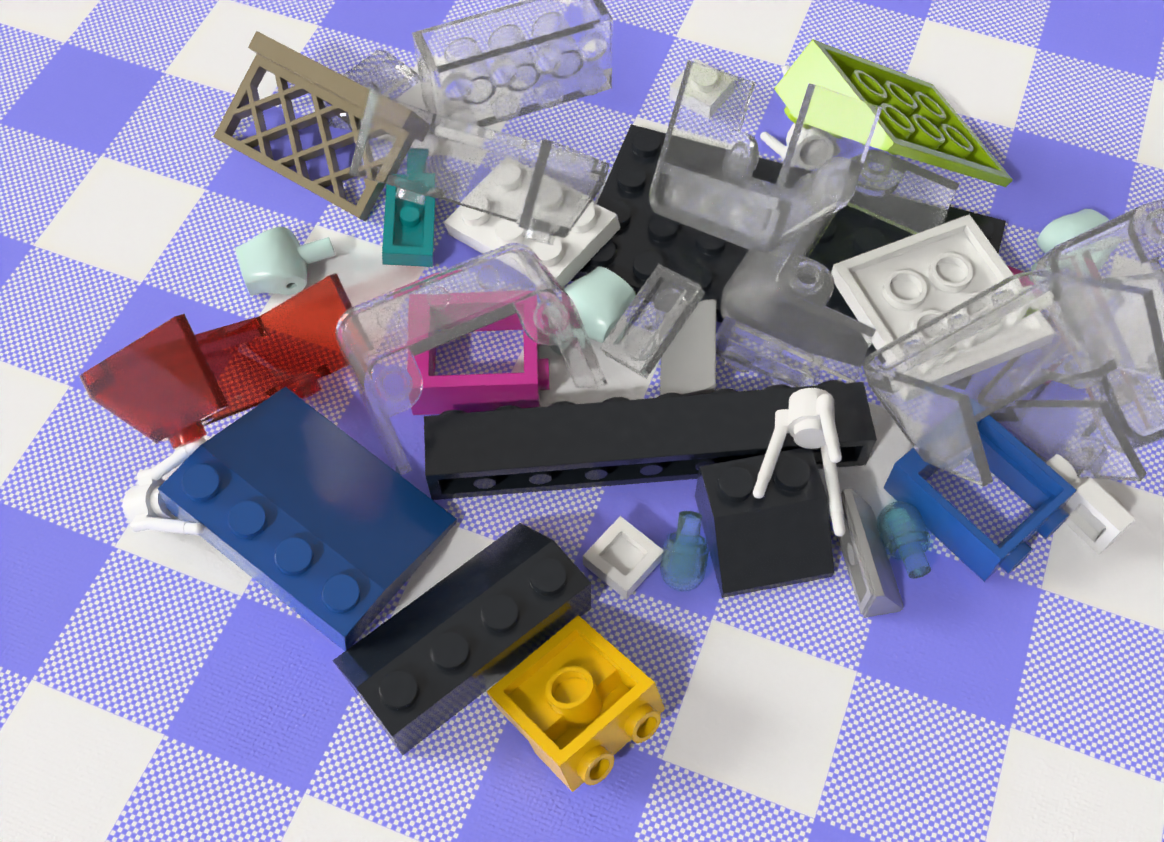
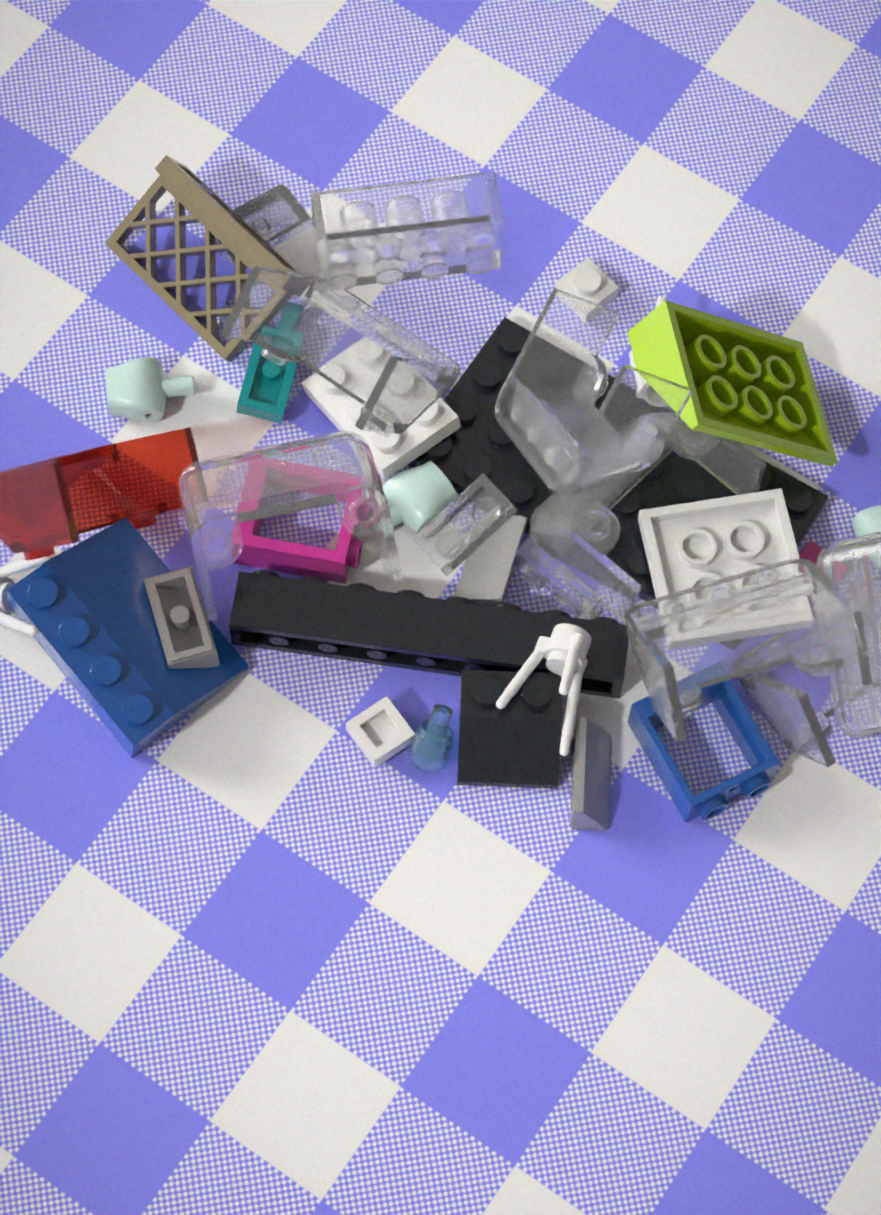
camera: 10 degrees right, 5 degrees up
(371, 482) = (181, 620): none -> light grey slope
(464, 634) = (233, 765): black slope -> none
(579, 703) = (310, 841): yellow plate -> none
(905, 536) = (627, 768): clear light blue cylinder -> none
(1093, 512) = (795, 784): white plate -> none

